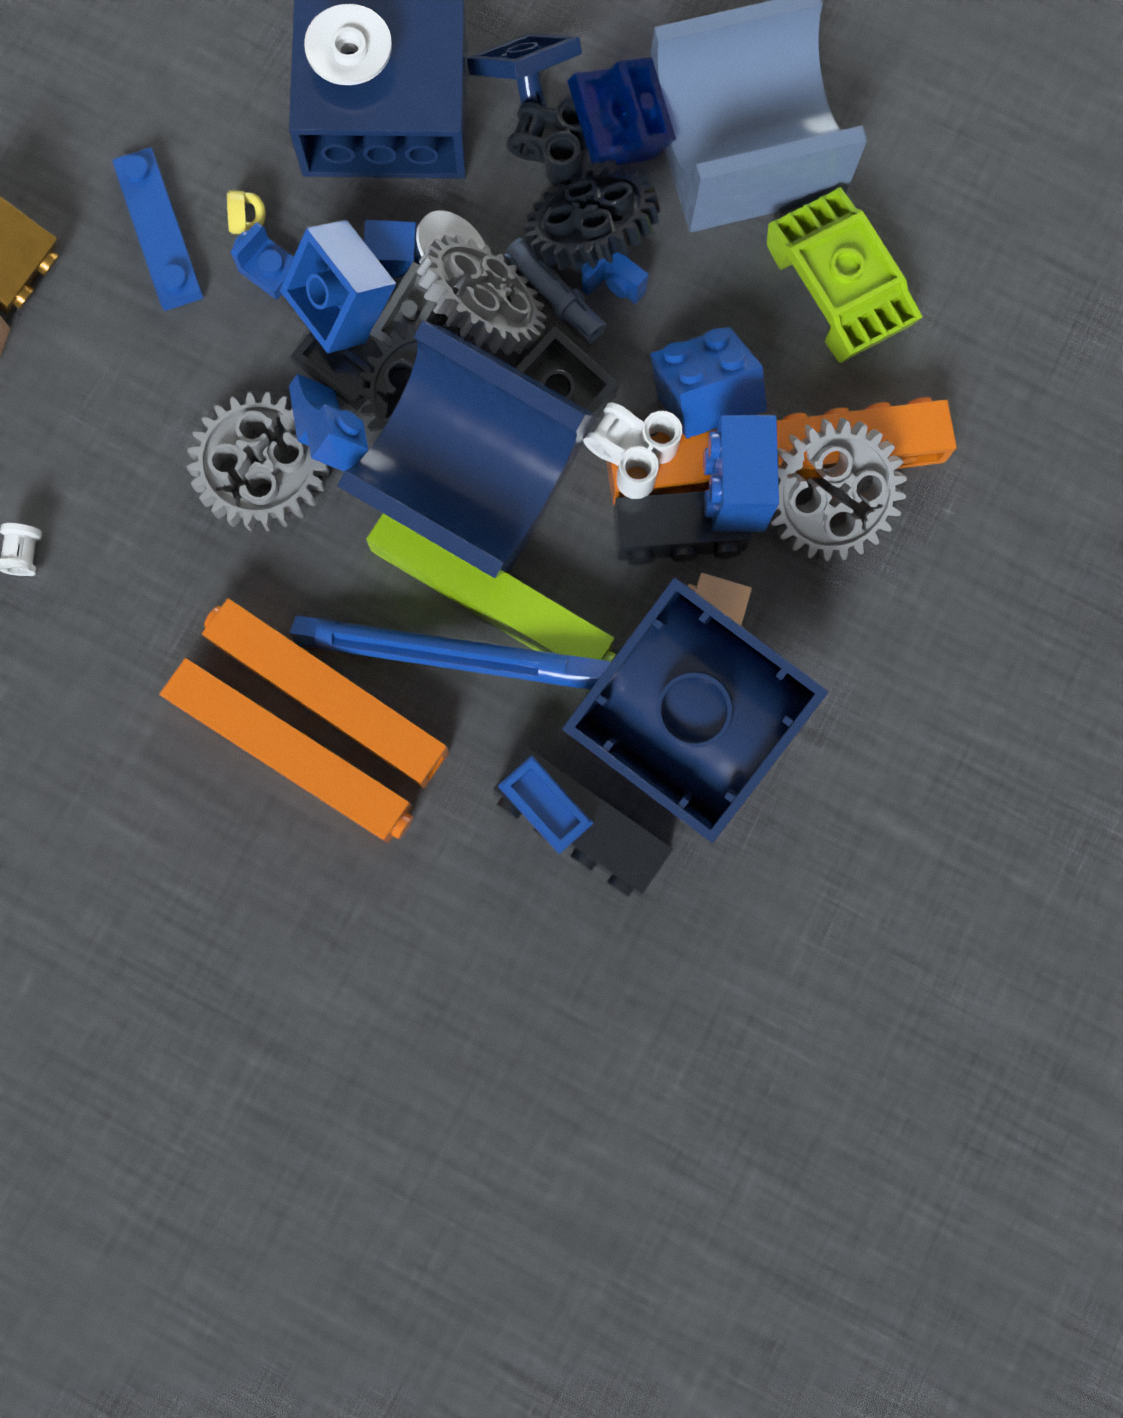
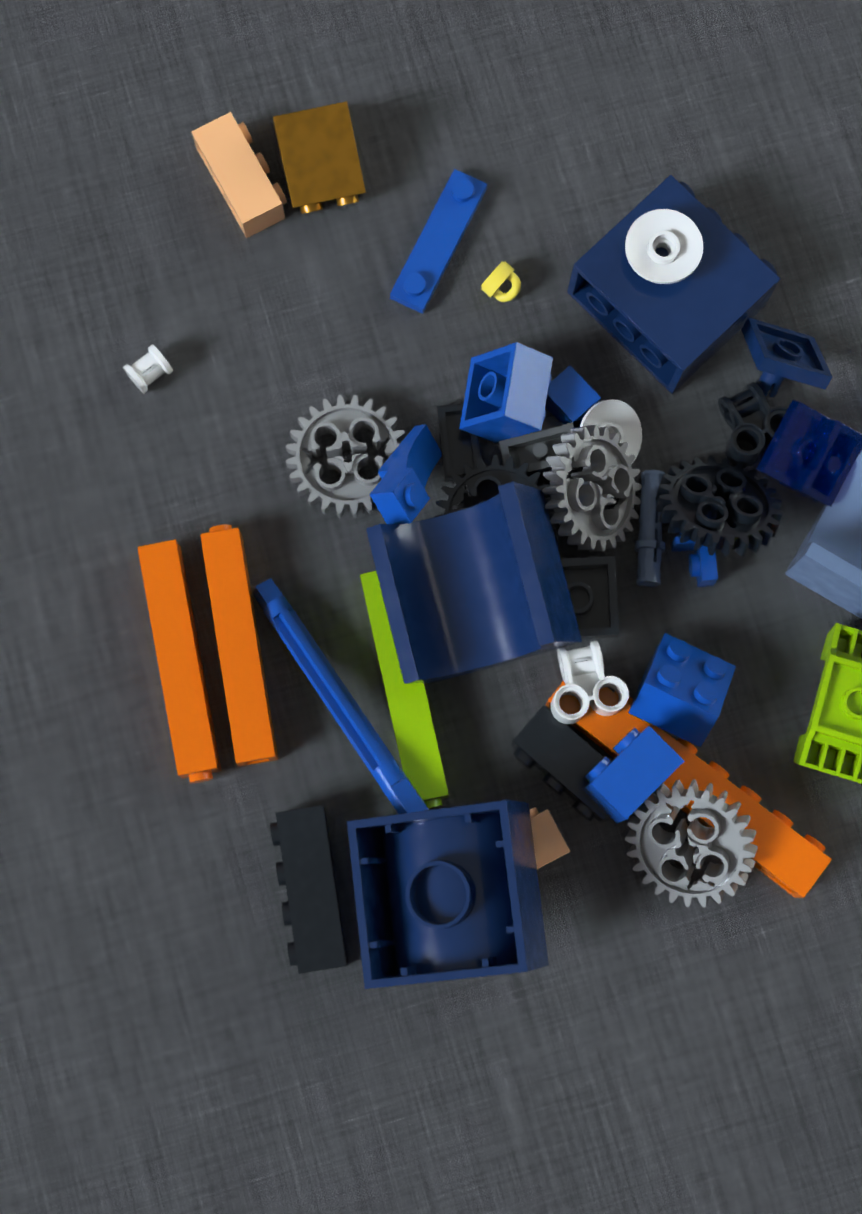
camera: 50 degrees right, 0 degrees up
(261, 260) = (482, 326): blue bracket -> none
(545, 805) = (295, 856): blue tile -> none

